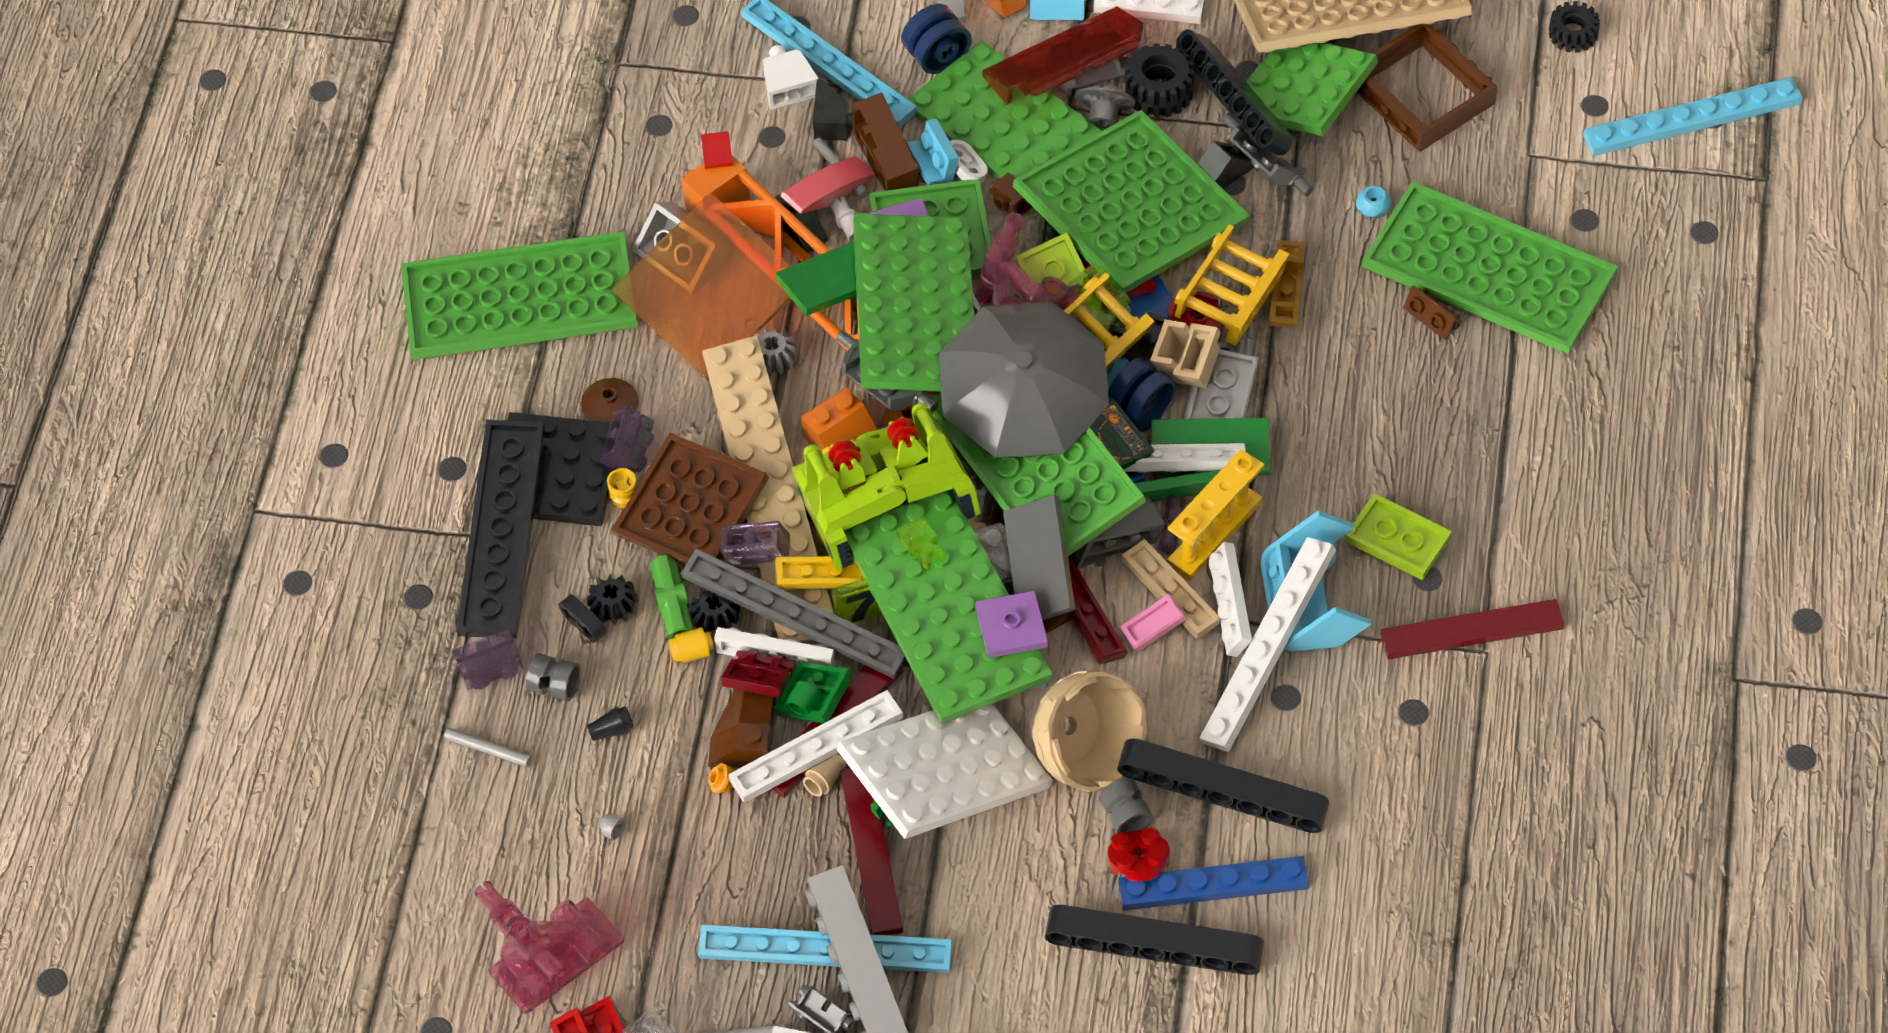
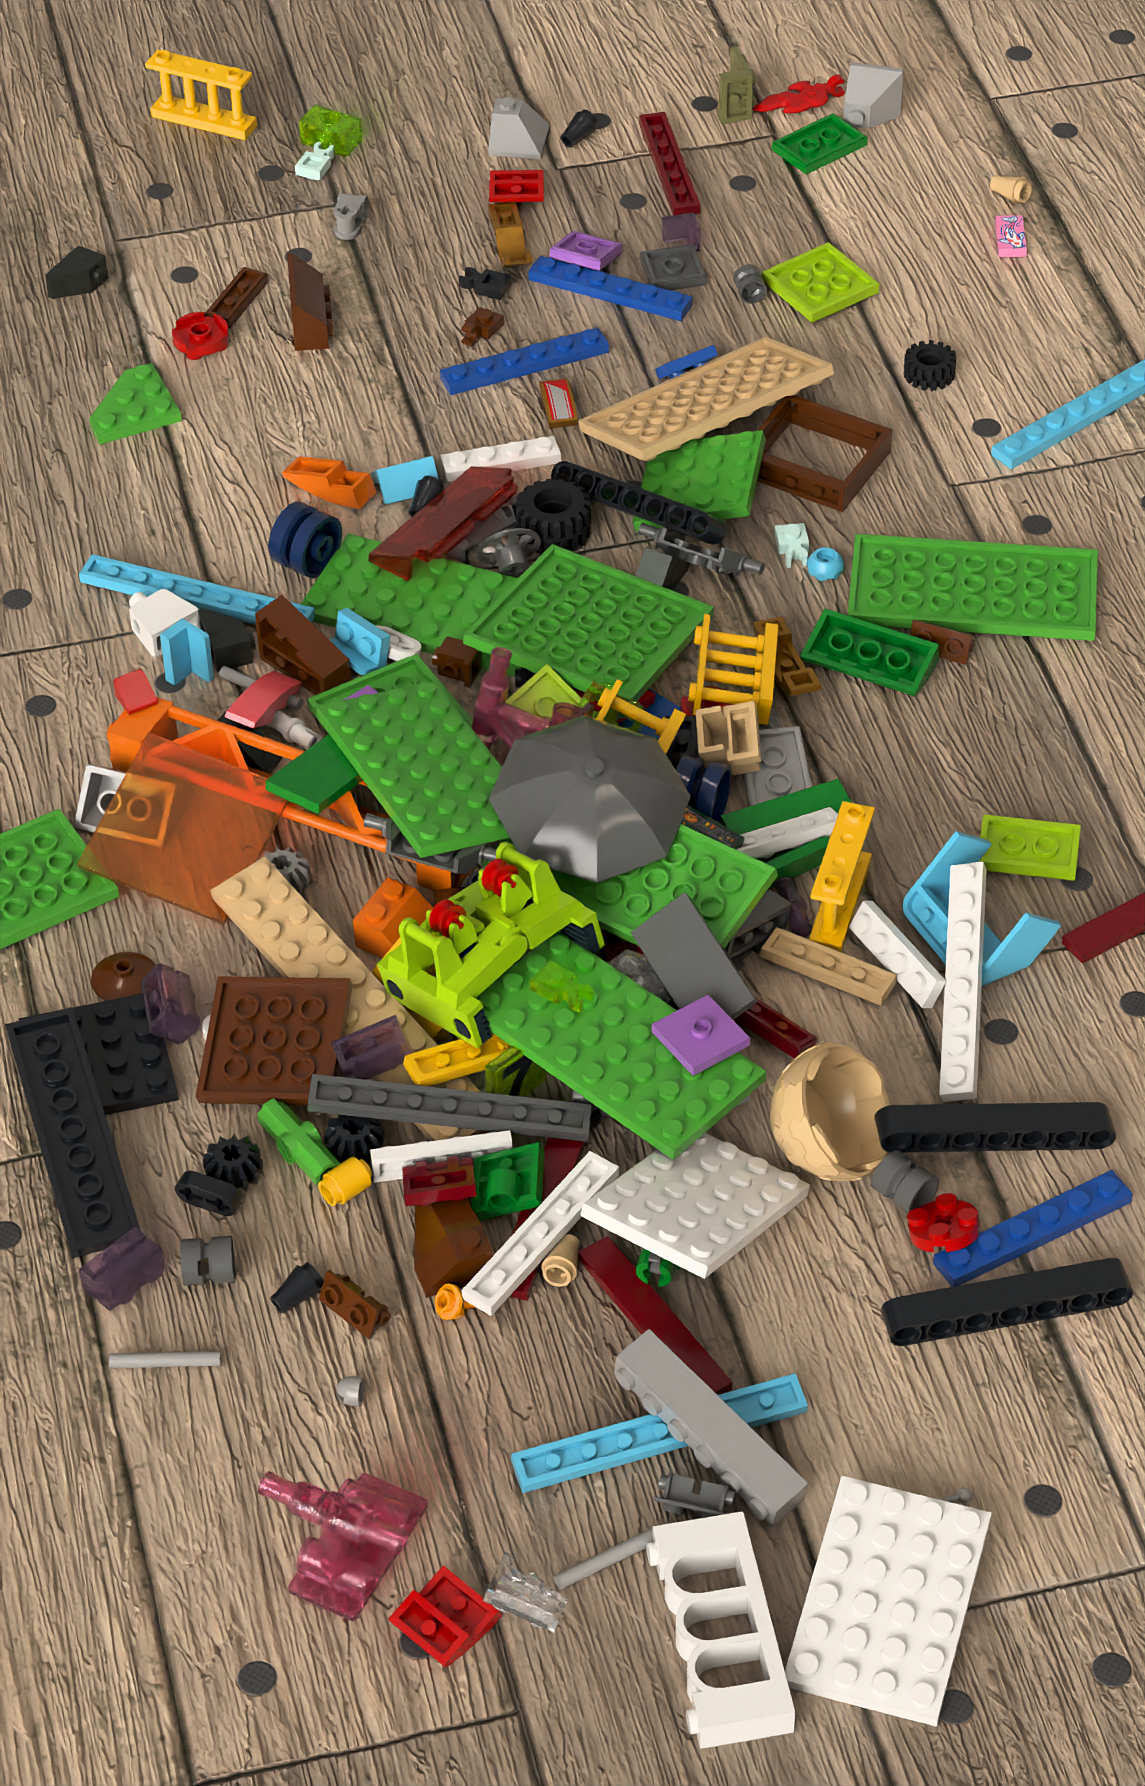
camera: 25 degrees left, 10 degrees down
(621, 486) = (186, 1051): yellow wheel -> none
(643, 741) = (350, 1304): none -> reddish brown hinge
(786, 117) = (186, 652): none -> medium azure panel
(1063, 21) = (425, 491): none -> black cone
(1153, 623) = (829, 1002): bright pink tile -> none
(1357, 169) = (792, 542): none -> light aqua plate
(1364, 304) = (871, 652): none -> green slope

